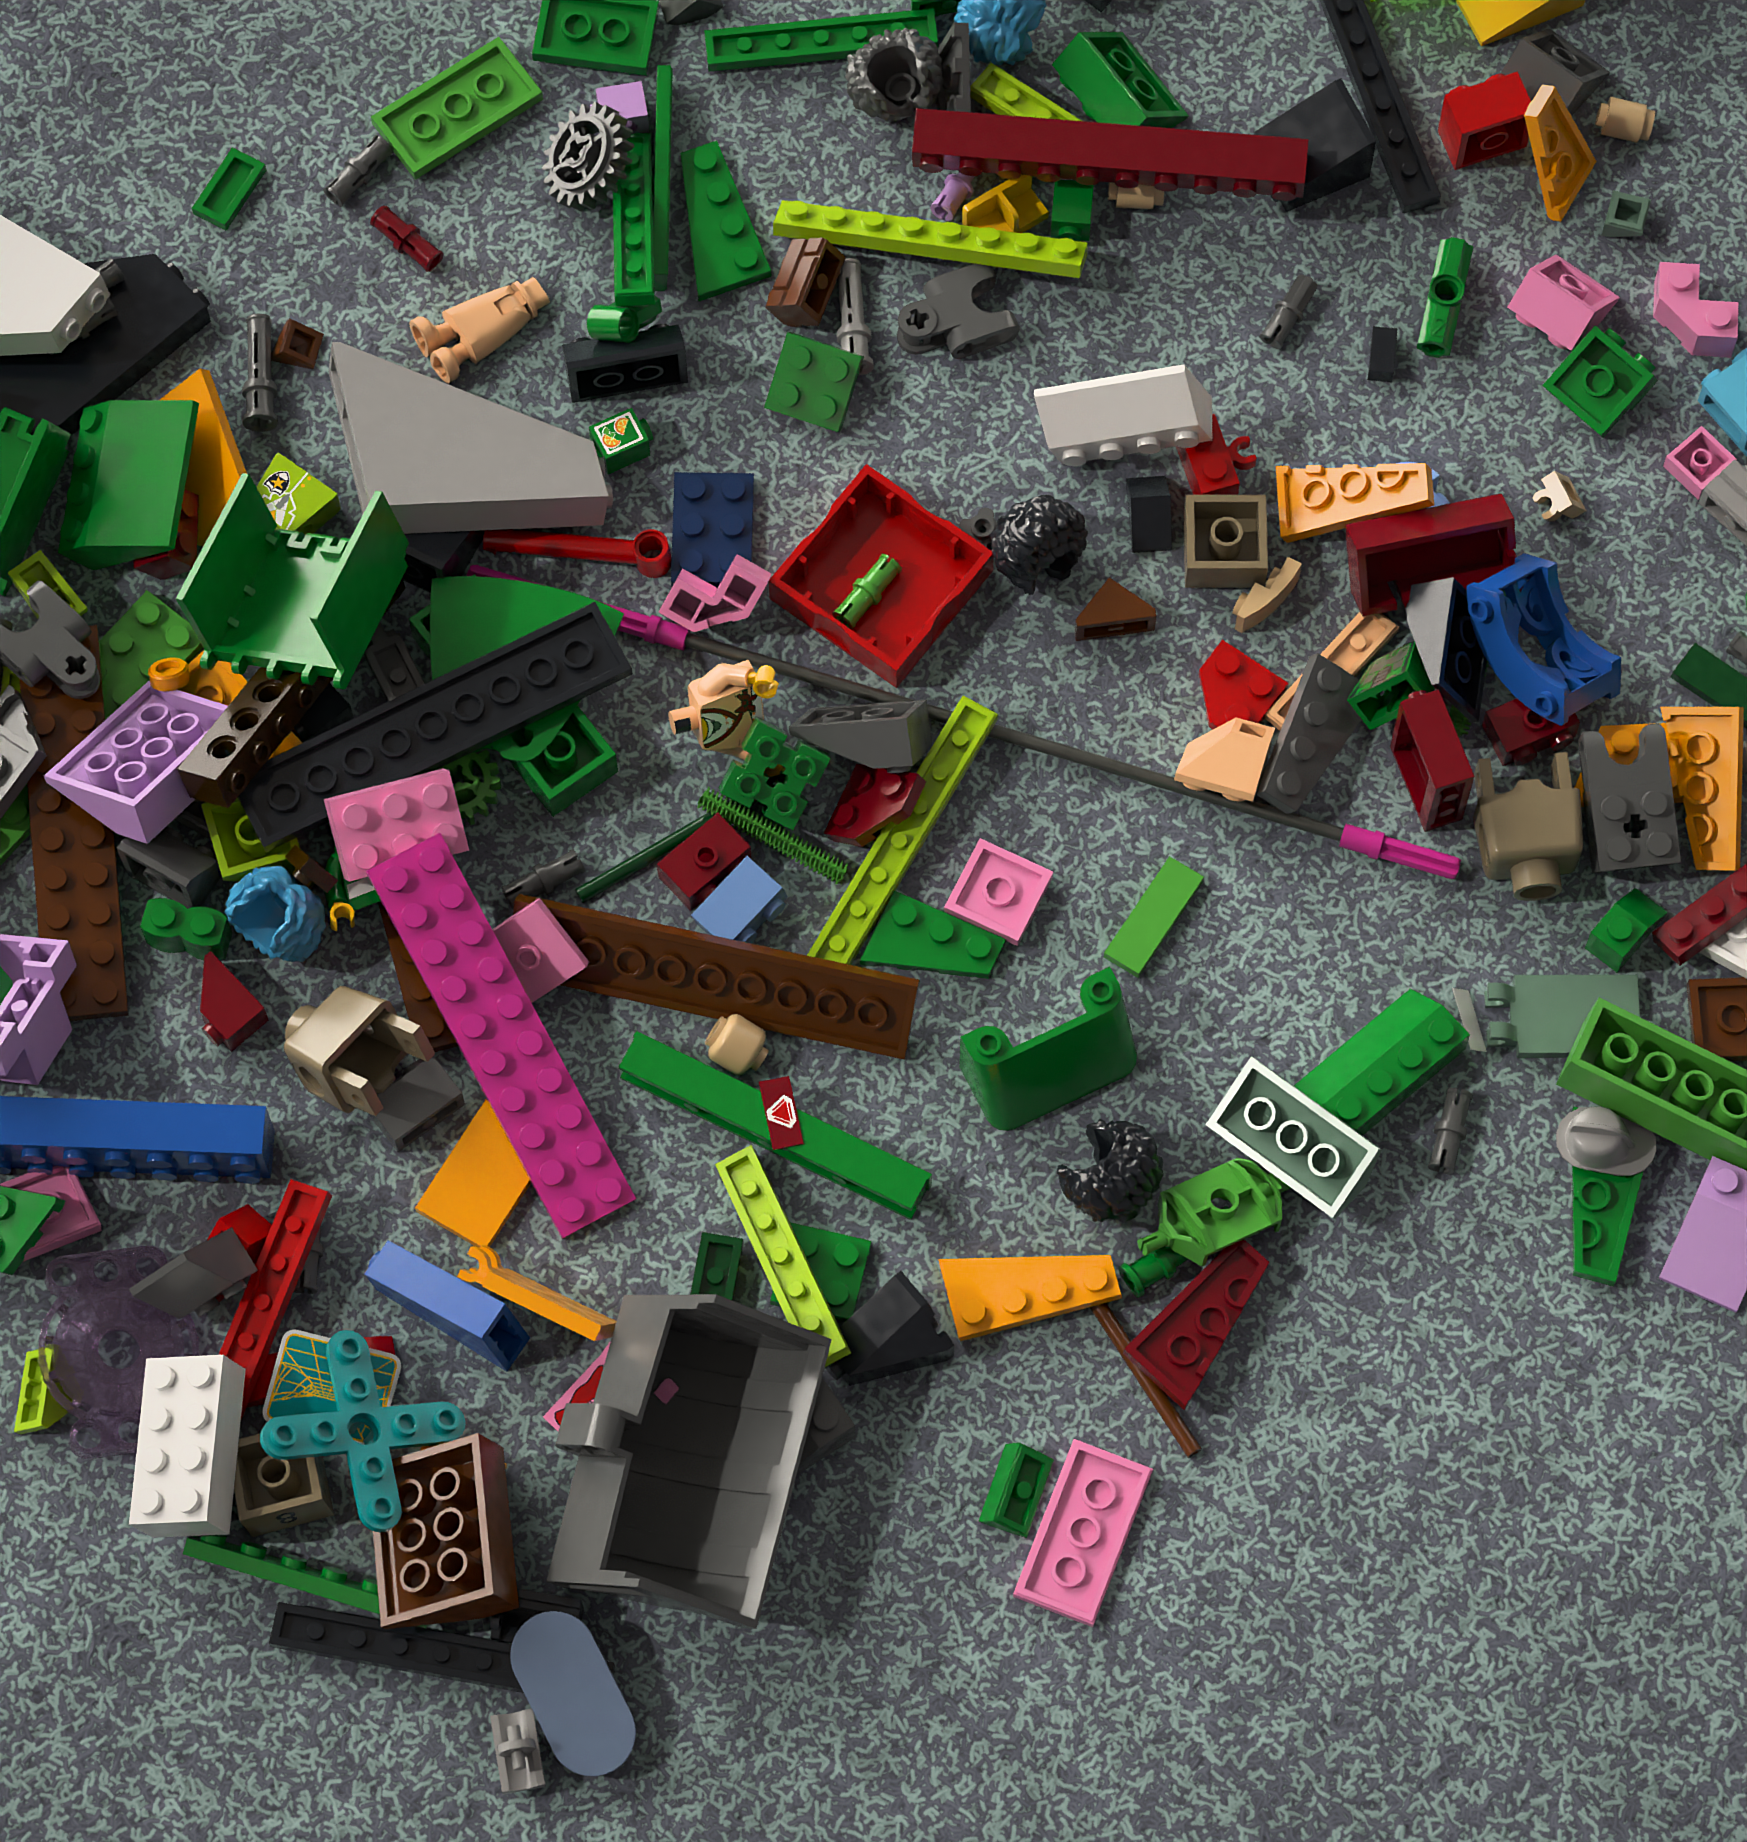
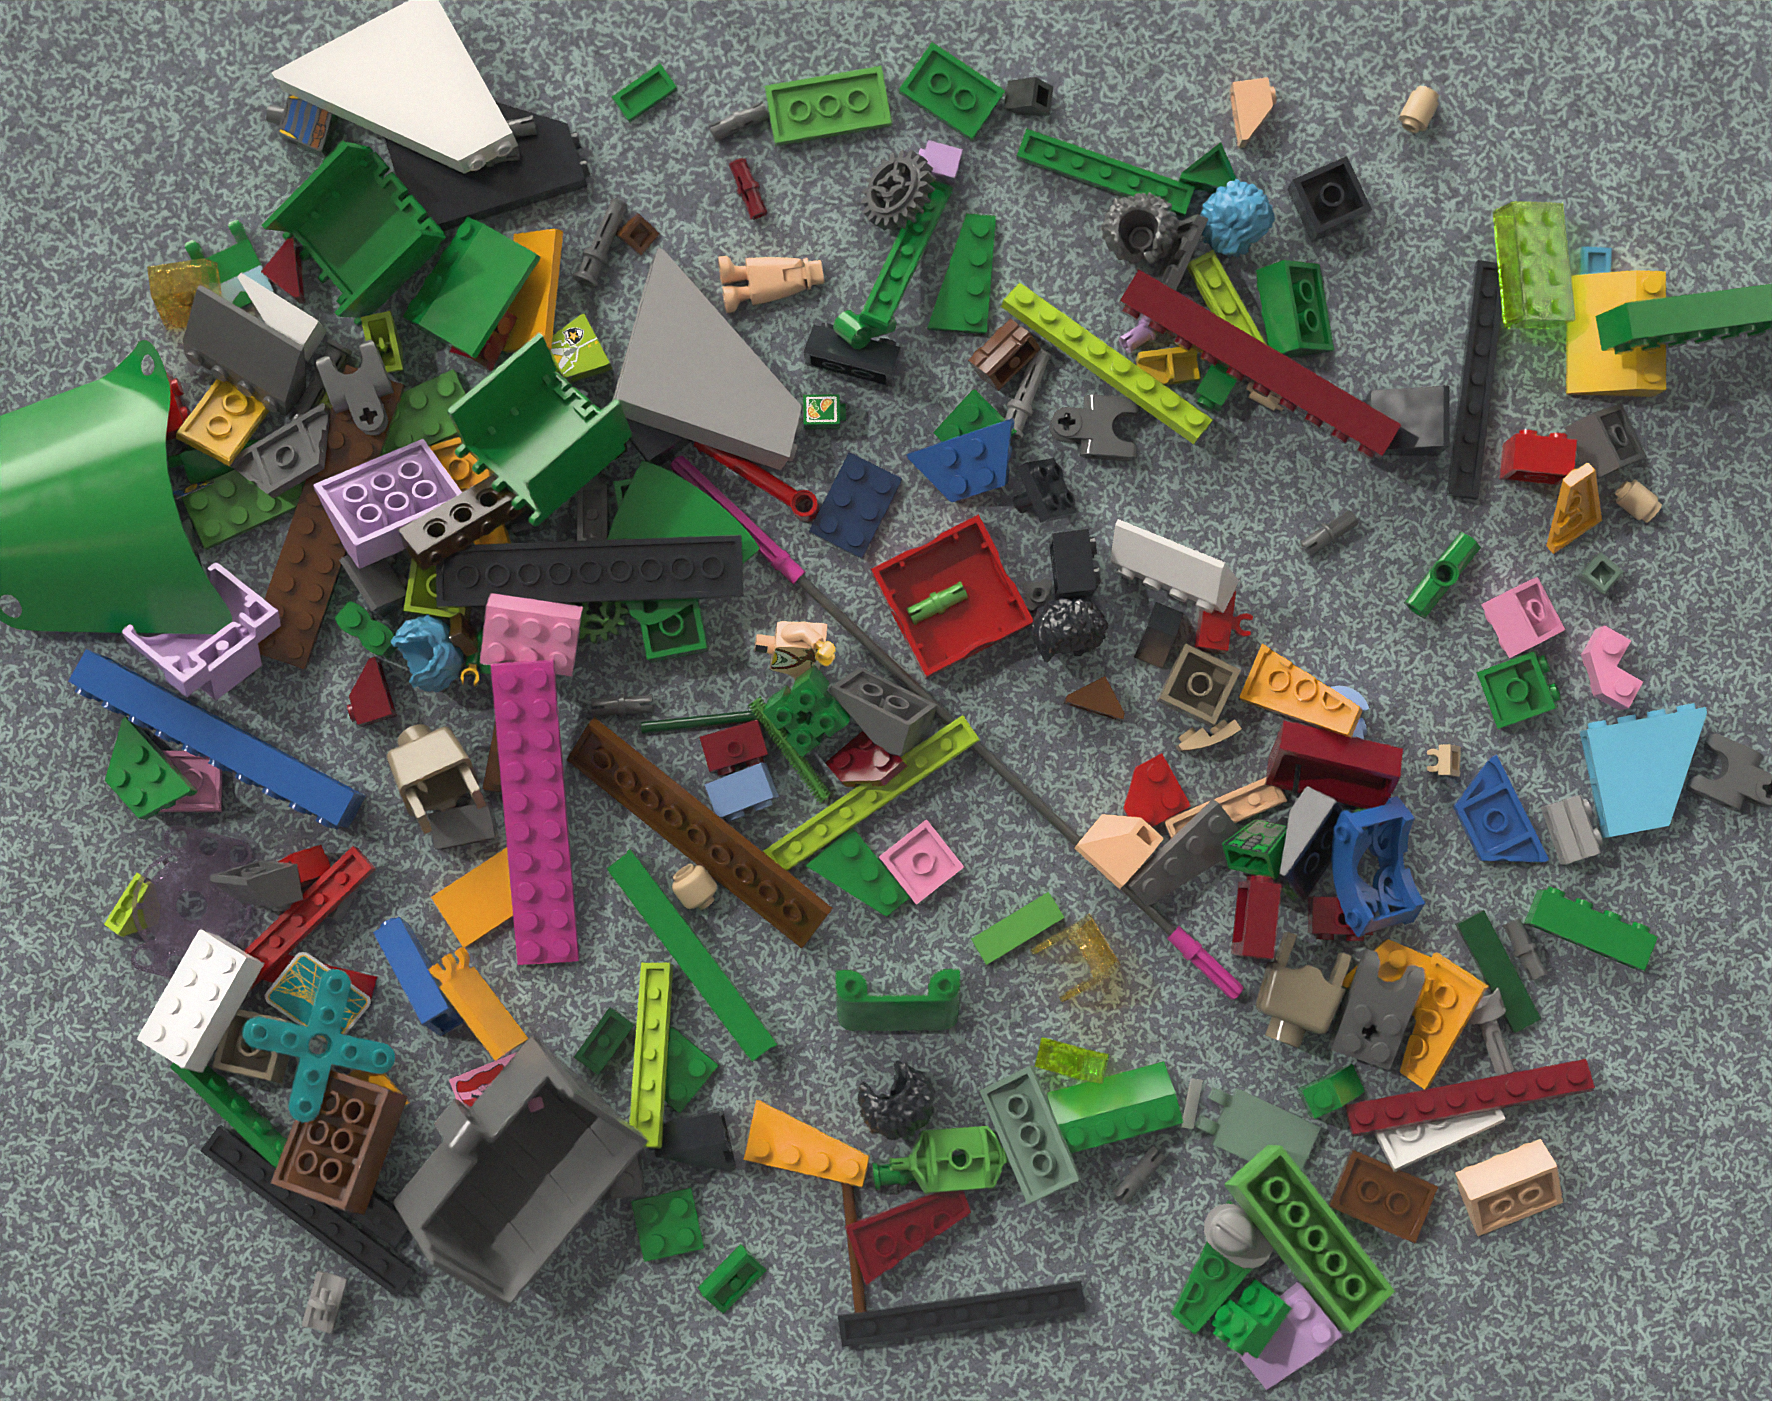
camera: 25 degrees right, 15 degrees up
(169, 674) = (437, 442): light orange tile -> none
(539, 949) = (588, 762): bright pink plate -> none
(573, 1693) = (377, 1283): sand blue tile -> none
(662, 166) = (944, 226): green tile -> none
(701, 605) = (819, 561): bright pink brick -> none
(781, 1112) = (697, 953): dark red sticker -> none
(823, 415) = (968, 462): none -> blue wing
(903, 1461) = (667, 1224): none -> green plate
(931, 408) = (1045, 491): none -> black plate
(1004, 465) = (1073, 563): none -> black brick
(1083, 1533) = (761, 1329): bright pink tile -> none
(1219, 880) = (1093, 948): none -> clear yellow hose
(1300, 1033) = (1072, 1060): none -> clear neon green slope
(1319, 1394) = (961, 1313): none -> black plate
(1382, 354) = (1377, 595): black piece -> none
(1655, 535) = (1497, 819): none -> blue wing
(1673, 1227) = (1250, 1321): none -> green plate
(1698, 461) = (1556, 781): bright pink piece -> none

